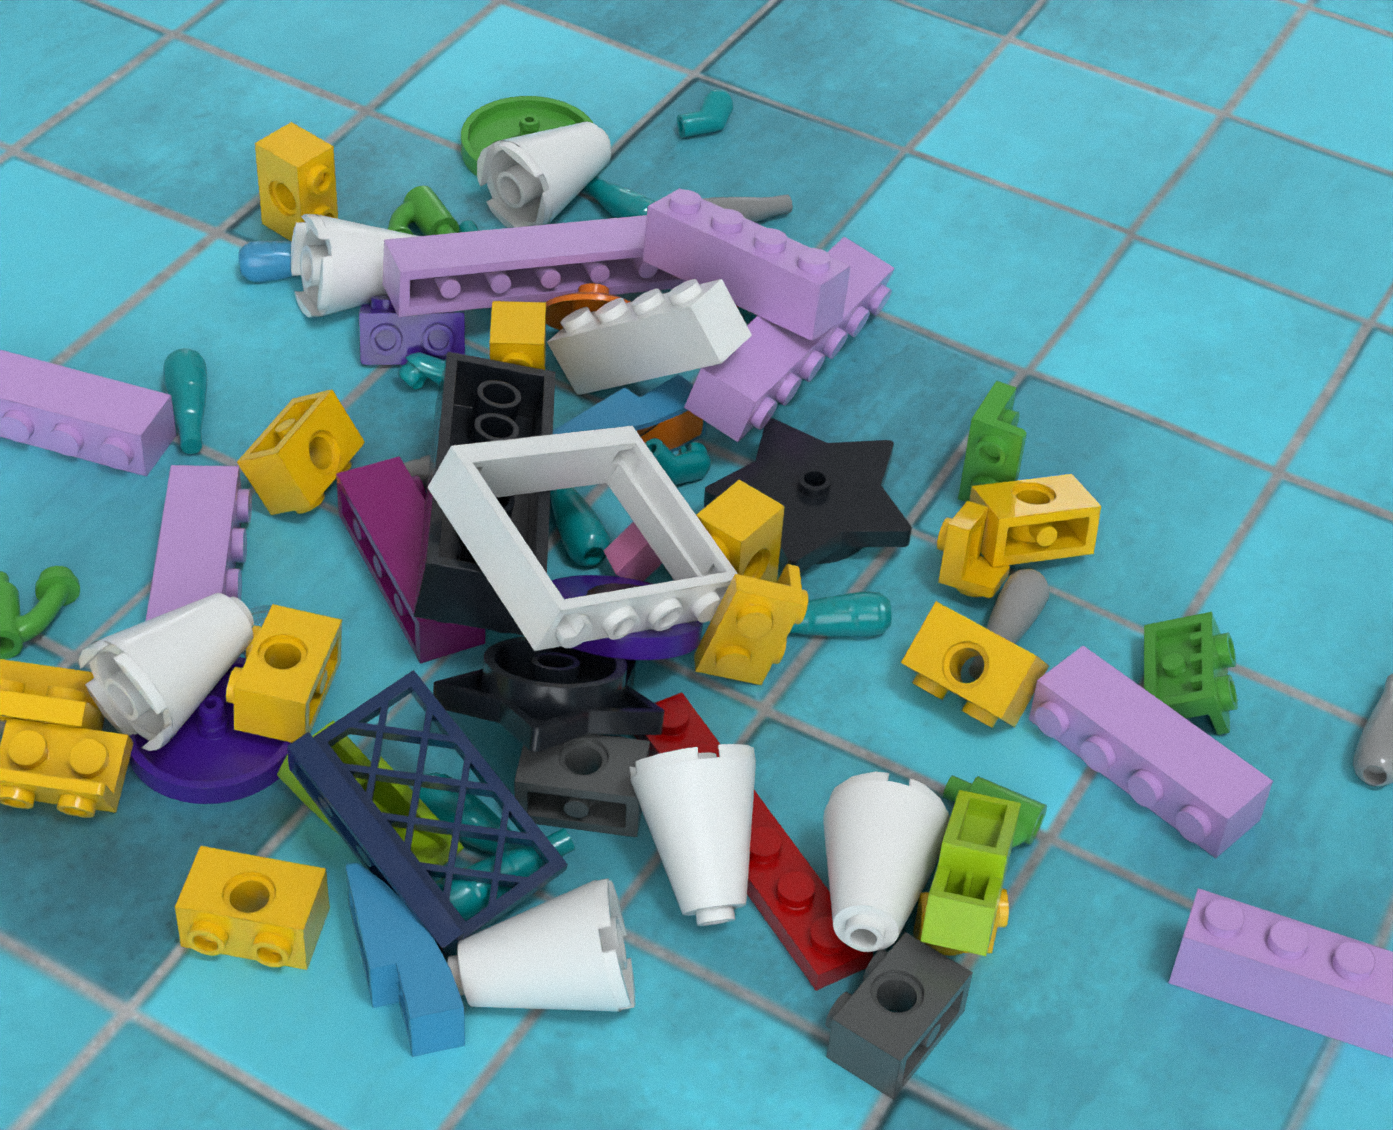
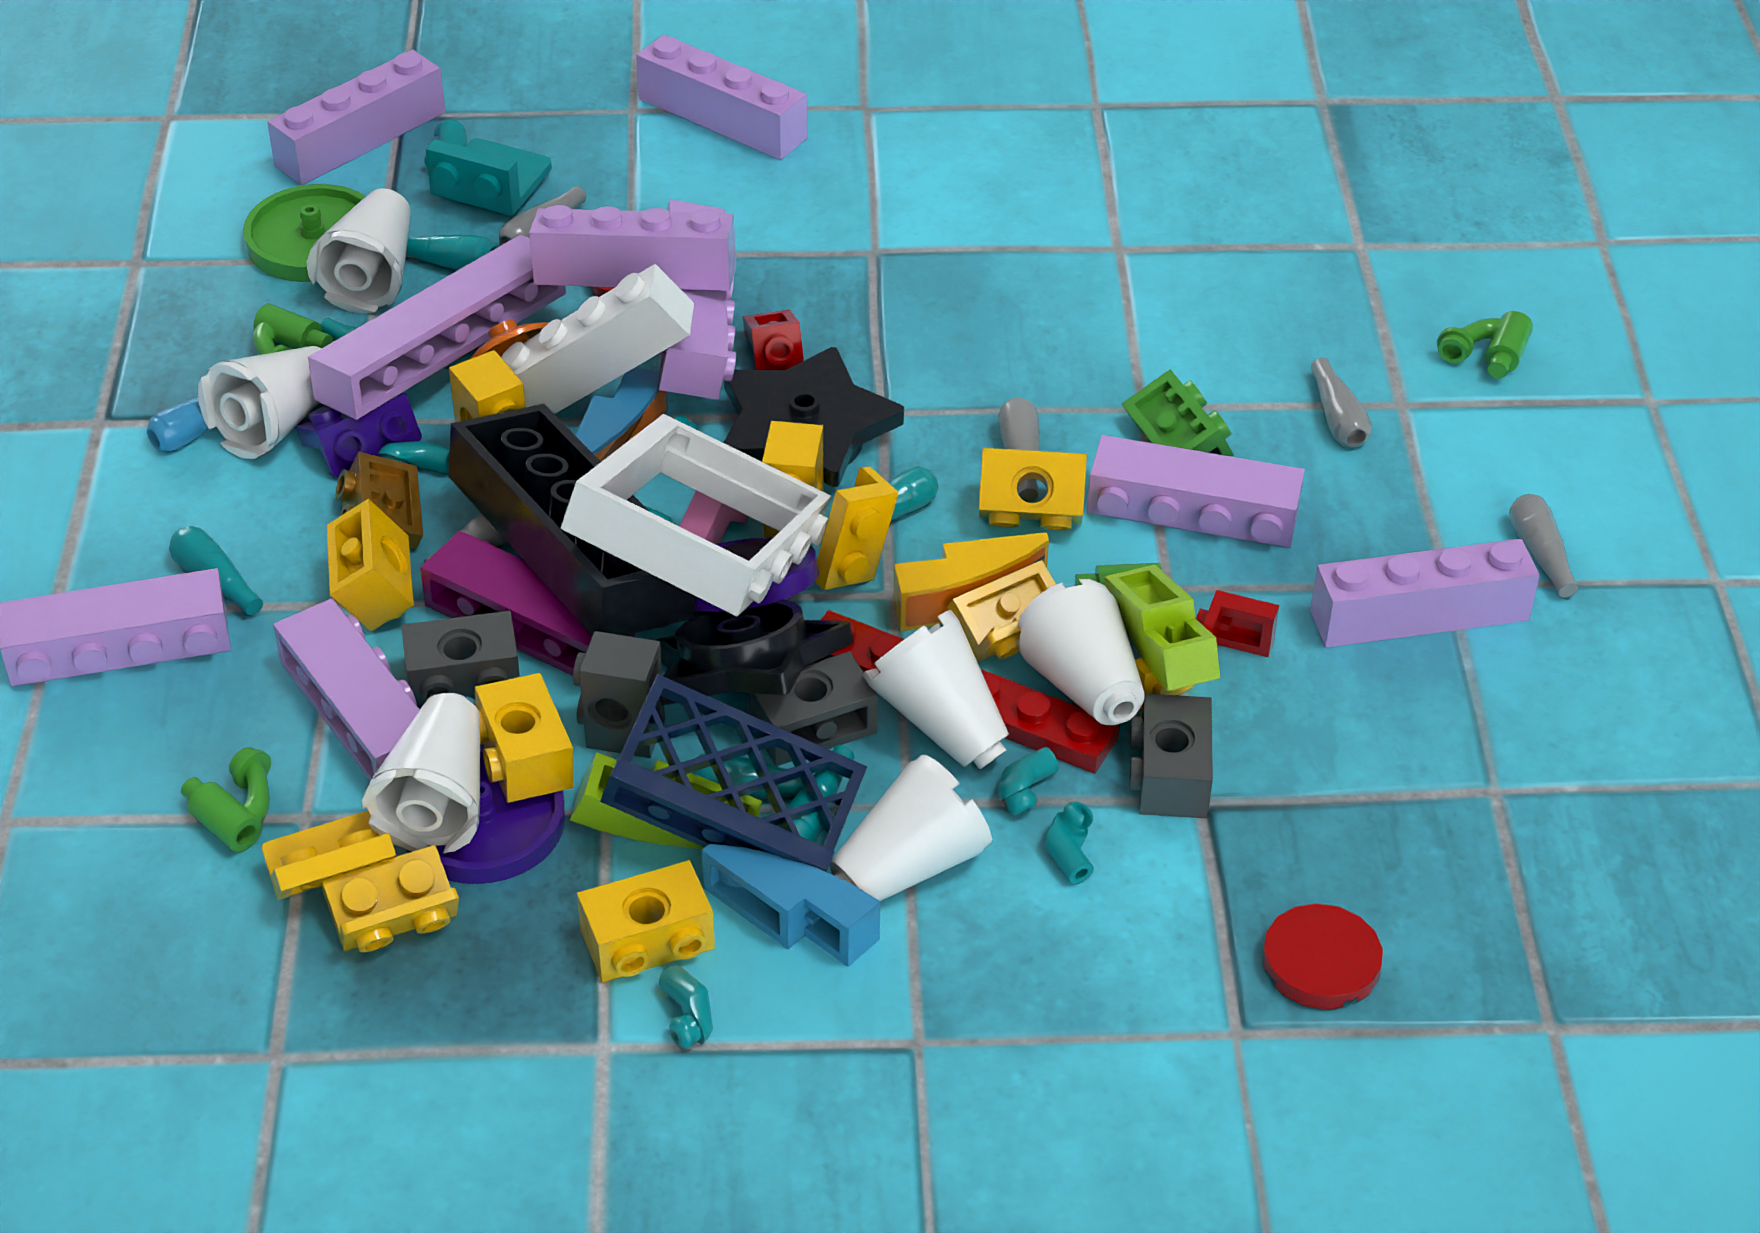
camera: 30 degrees left, 0 degrees up
(230, 1008) = (693, 998): none -> teal arm
(294, 178) = (161, 347): yellow brick -> none
(311, 573) = (459, 654): none -> dark grey brick
(378, 397) = (390, 486): none -> pearl gold bracket
(393, 648) = (614, 686): none -> dark grey brick
(645, 56) = (356, 117): none -> lavender brick
(715, 155) = (485, 174): none -> teal bracket
(720, 1044) = (1065, 841): none -> teal arm
(731, 951) = (1023, 773): none -> teal arm
(827, 763) = (993, 610): none -> yellow bracket
(840, 728) = (928, 586): none -> yellow slope
(848, 410) = (774, 339): none -> red bracket
(961, 561) = (960, 422): yellow bracket -> none
(989, 167) = (722, 96): none -> lavender brick
(993, 442) = (923, 322): bright green bracket -> none
(1037, 520) = (984, 361): yellow brick -> none
(1077, 906) = (1241, 622): none -> red bracket

